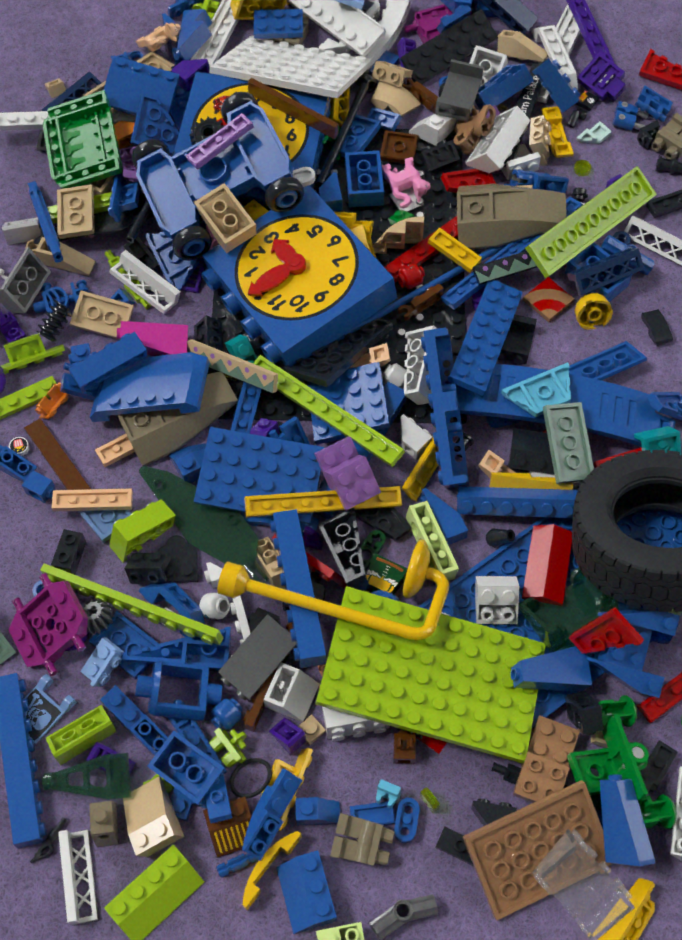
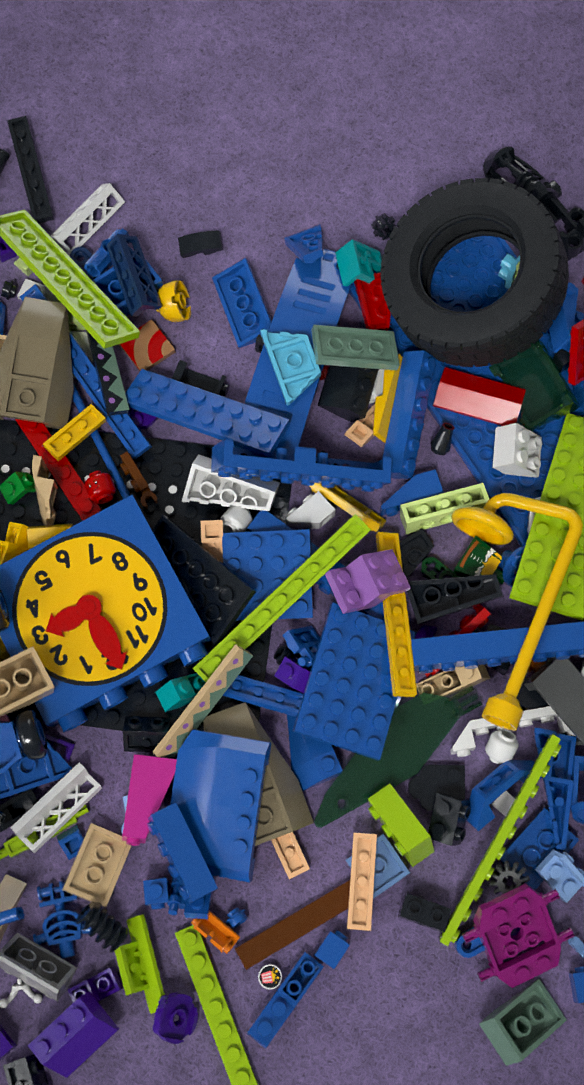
camera: 85 degrees left, 10 degrees up
(64, 417) = (236, 917): none -> blue plate

